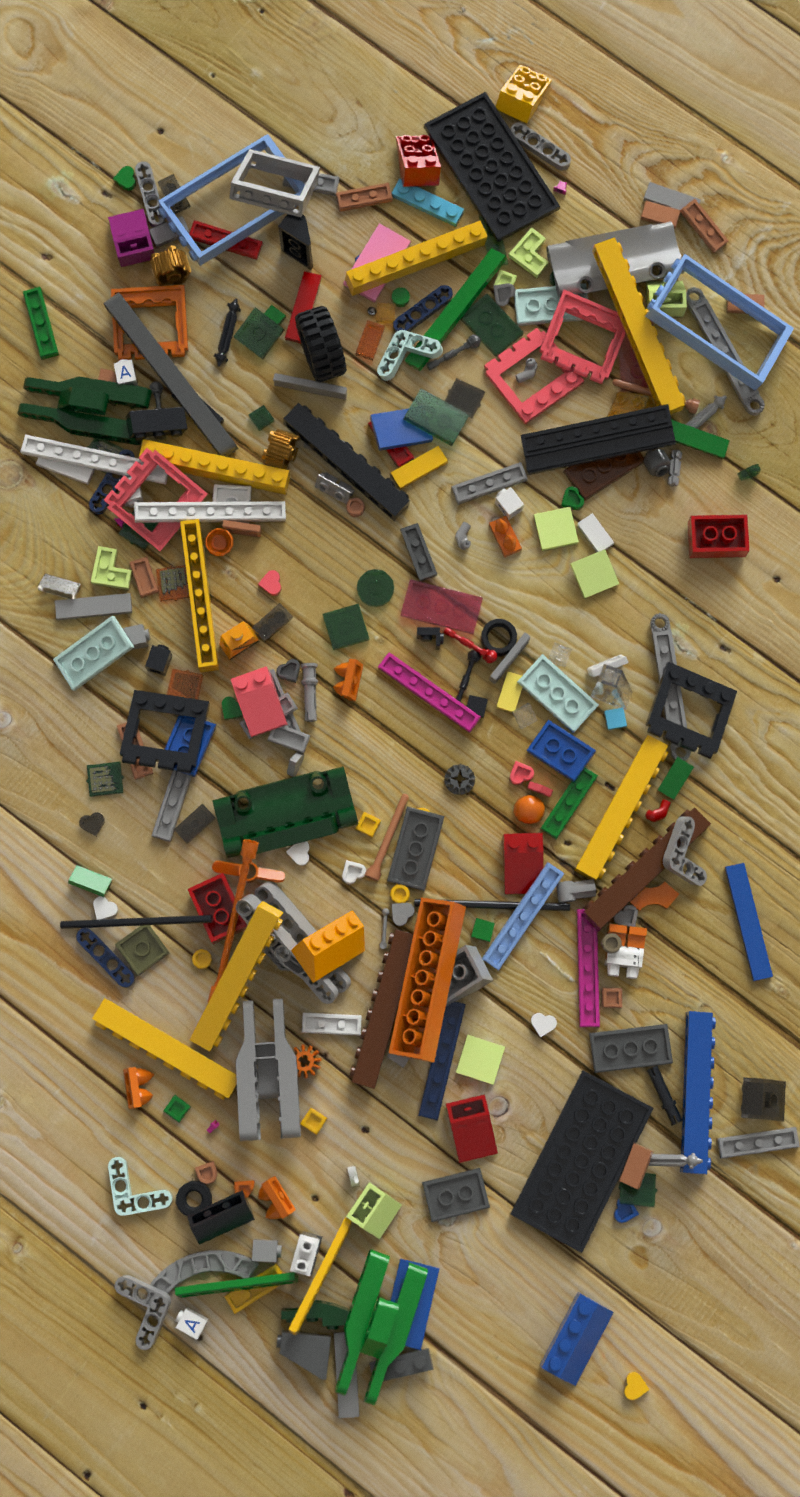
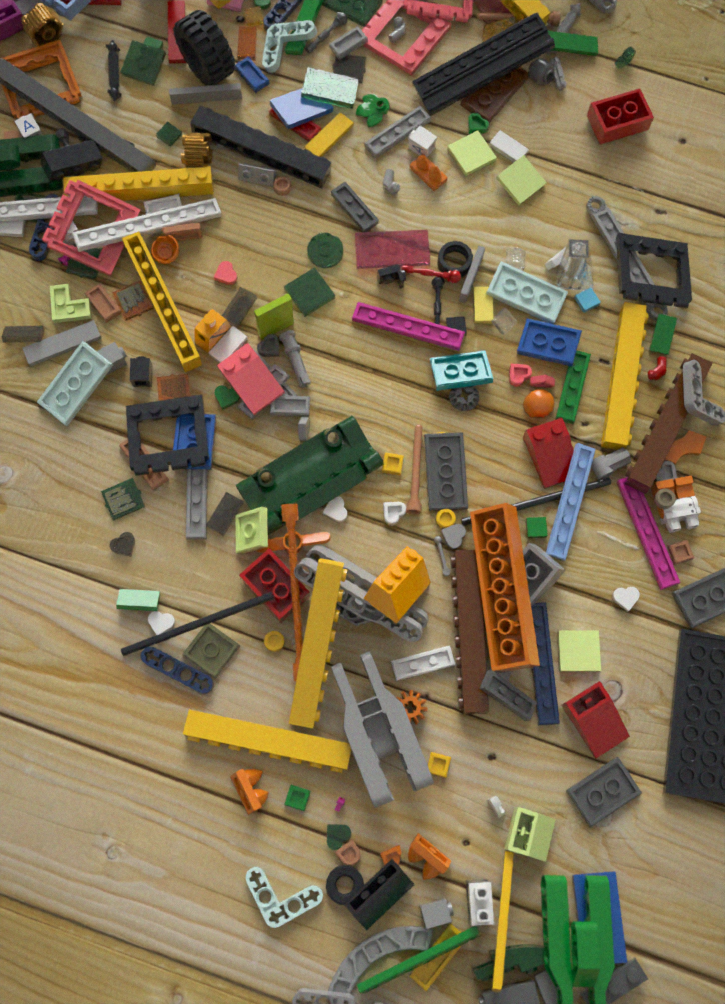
camera: 20 degrees left, 5 degrees down
(201, 1153) = (337, 835): none -> clear green tile
(213, 849) = (251, 530): none -> yellowish green tile
(250, 658) = (228, 344): none -> white tile
(300, 647) = (274, 316): none -> lime tile
(352, 673) = (330, 330): orange tile -> none
(363, 377) = (252, 74): none -> blue tile
(397, 1079) = (508, 695): none -> dark grey plate
(465, 753) = (461, 370): none -> teal tile
(469, 451) = (371, 110): none -> green plate
(471, 372) = (348, 42): none -> light grey tile

